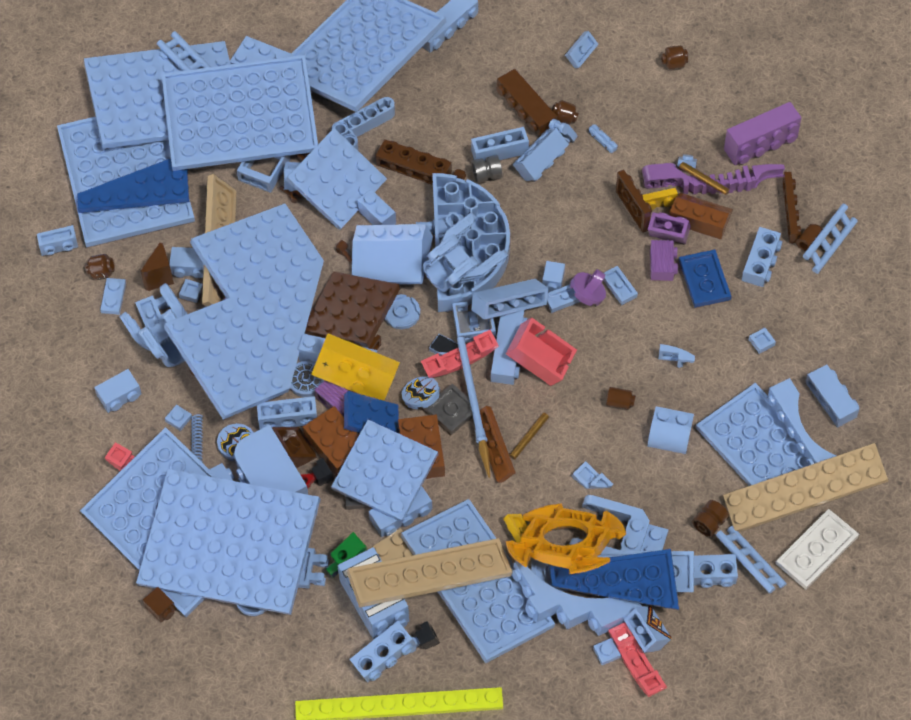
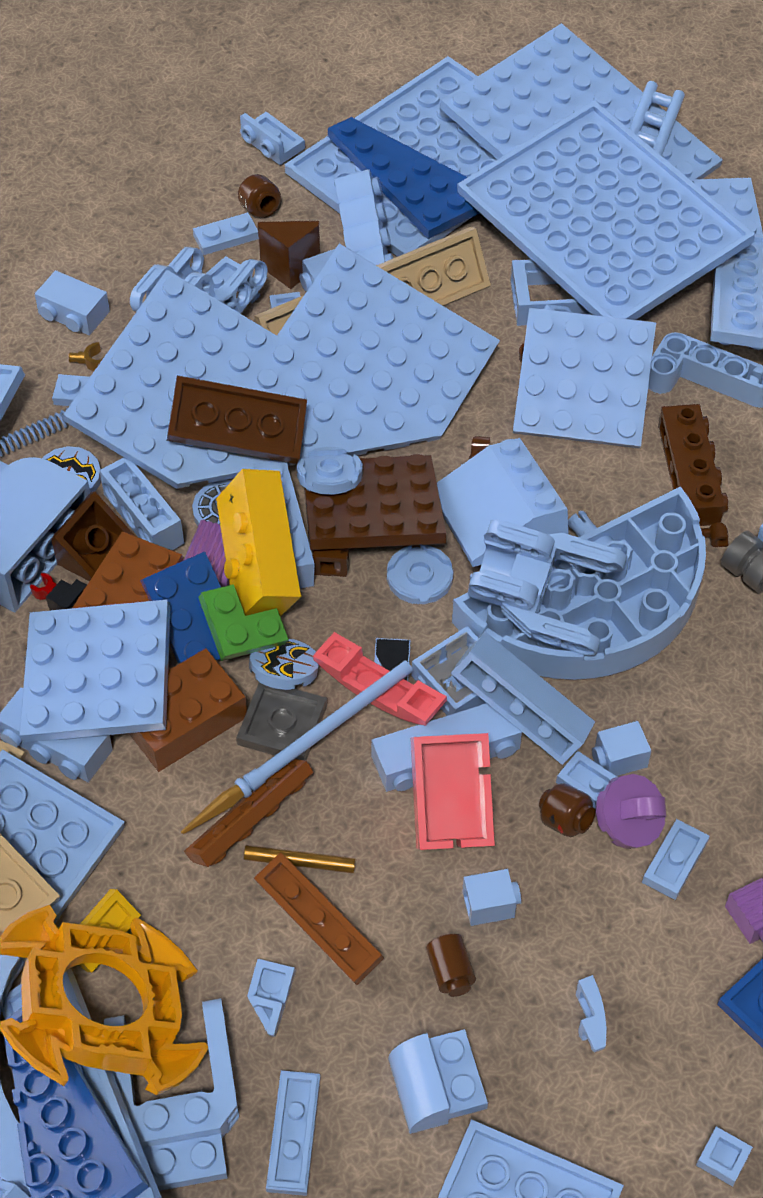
camera: 60 degrees right, 5 degrees down
(161, 401) = (85, 356): none -> pearl gold piece
(163, 226) = (363, 216): none -> light blue brick
(274, 340) = (237, 419): none -> reddish brown plate
(323, 317) = (329, 471): none -> light blue tile
(375, 209) = (570, 456): light blue brick -> none
(396, 401) = (235, 632): none -> bright green plate
(566, 440) = (319, 918): none -> dark orange plate
(570, 314) = (567, 810): none -> reddish brown head
(596, 366) = (490, 897): none -> light blue brick
(661, 497) = (293, 1133): none -> light blue tile

